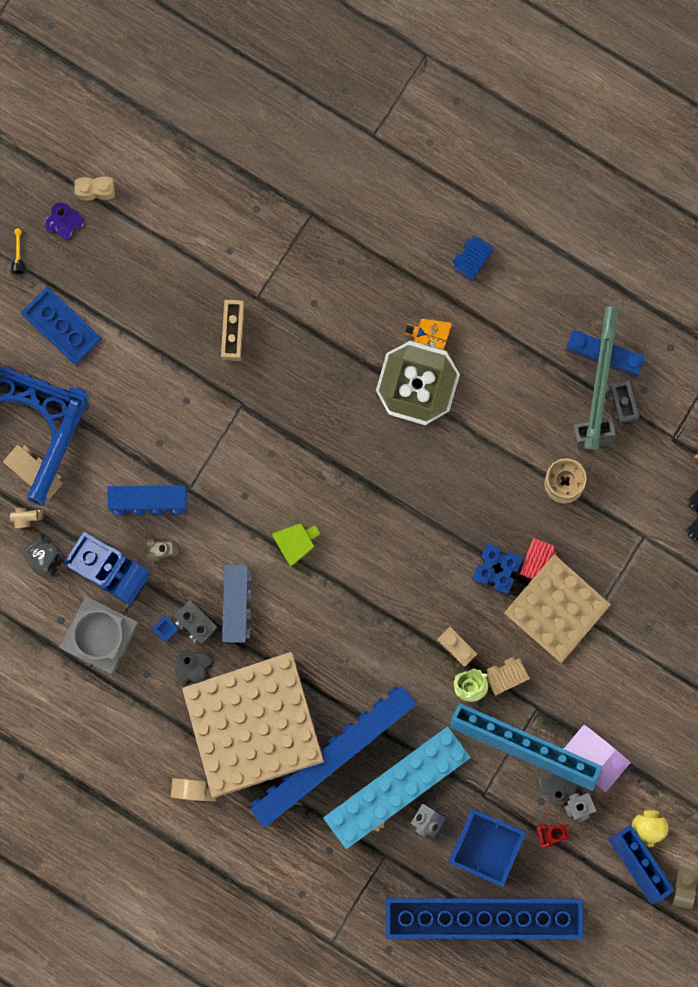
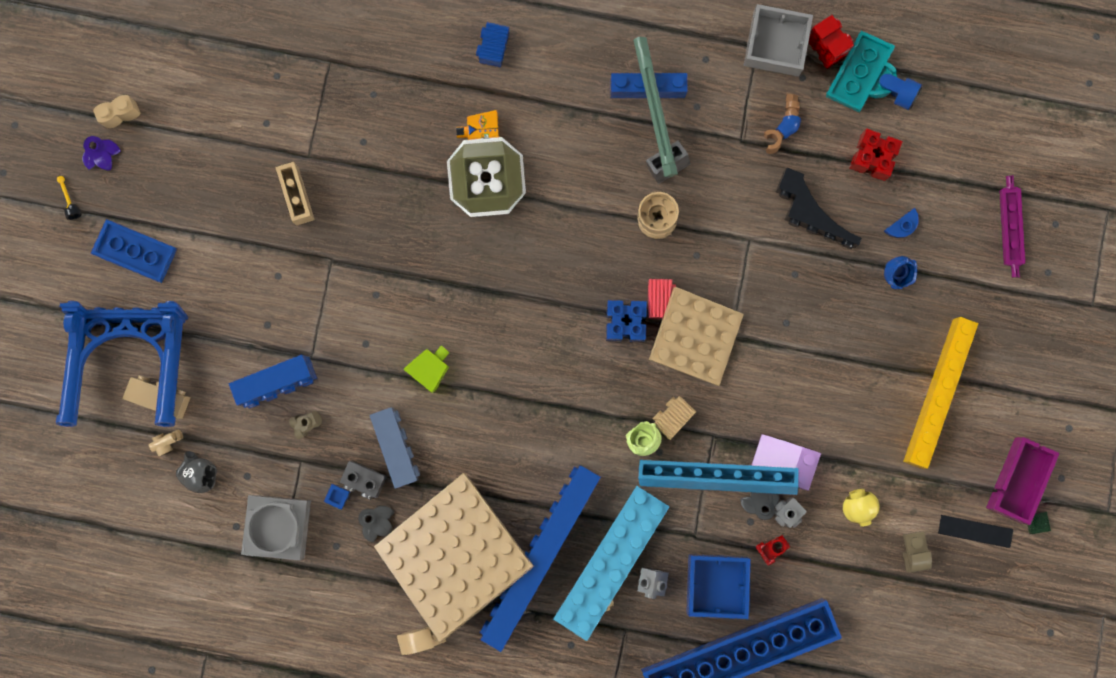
camera: 25 degrees left, 0 degrees up
(107, 568) = (260, 461): blue piece -> none
(456, 646) = (617, 408): tan brick -> none
(623, 402) = (683, 123): flat silver brick -> none
(641, 864) = (867, 545): blue brick -> none

